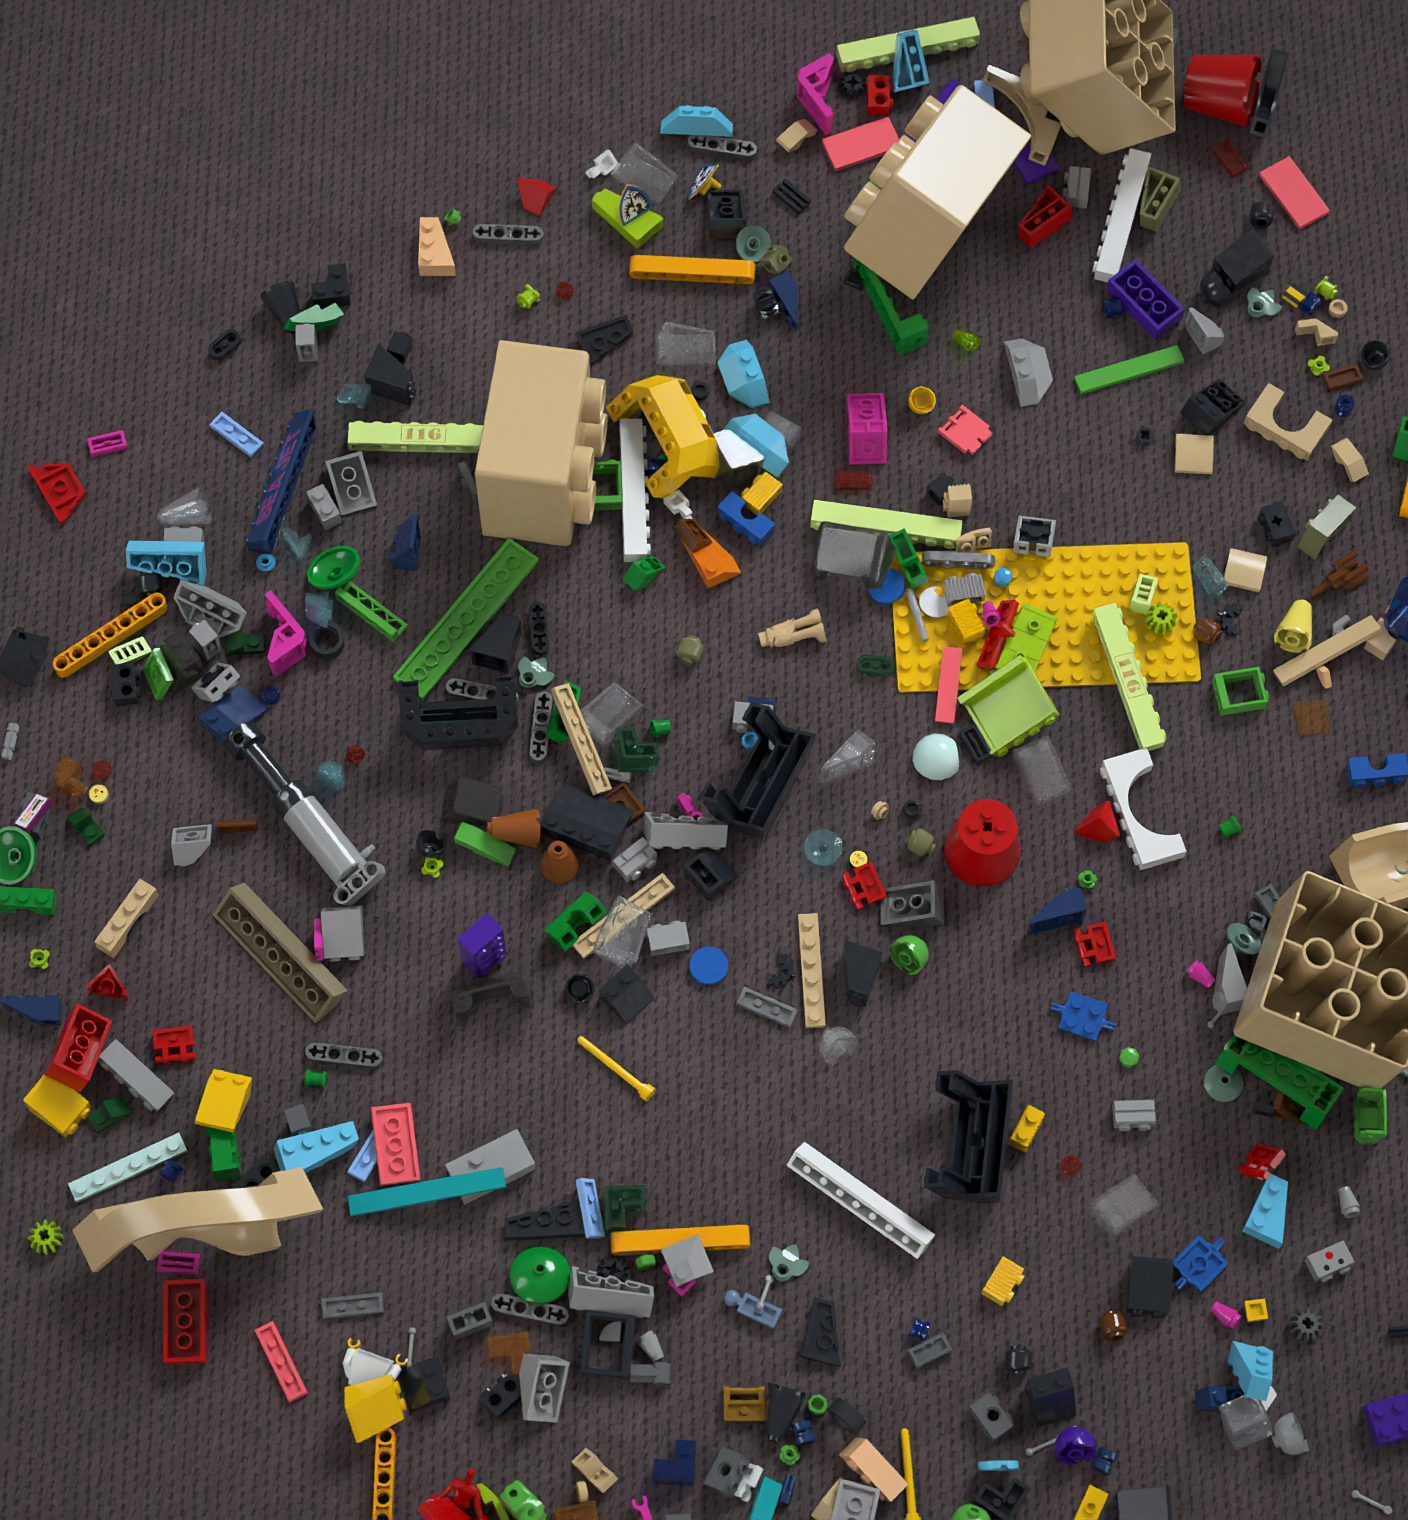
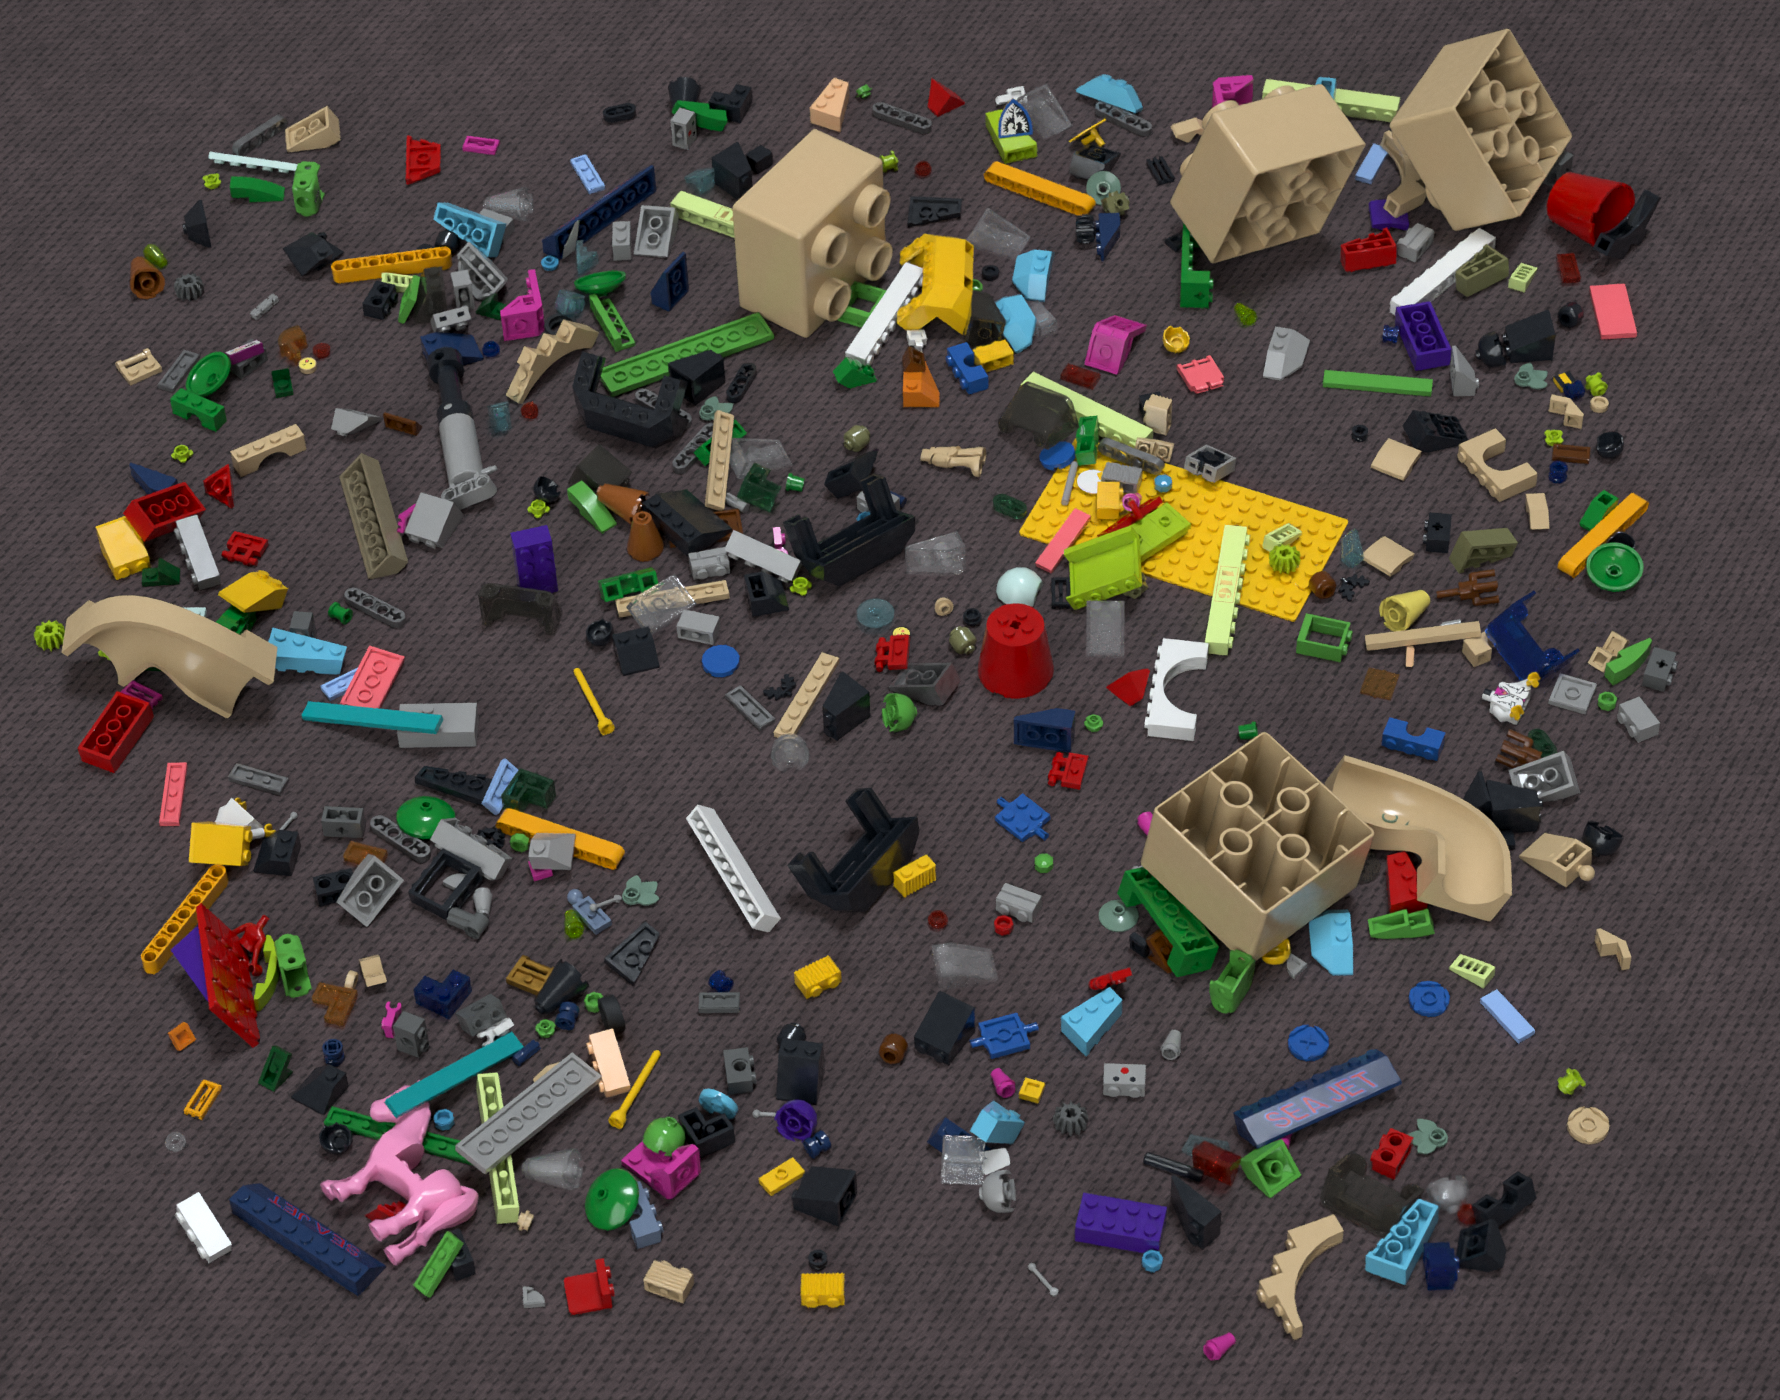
camera: 30 degrees right, 20 degrees down
(342, 677) = (534, 362): none -> tan arch
(711, 694) = (846, 477): none -> black slope
(737, 841) = (800, 585): none -> lime plate
(748, 1330) = (573, 925): none -> clear neon green cone
(1132, 1143) = (1003, 925): none -> red tile
(1197, 197) = (1522, 277): none -> yellowish green slope

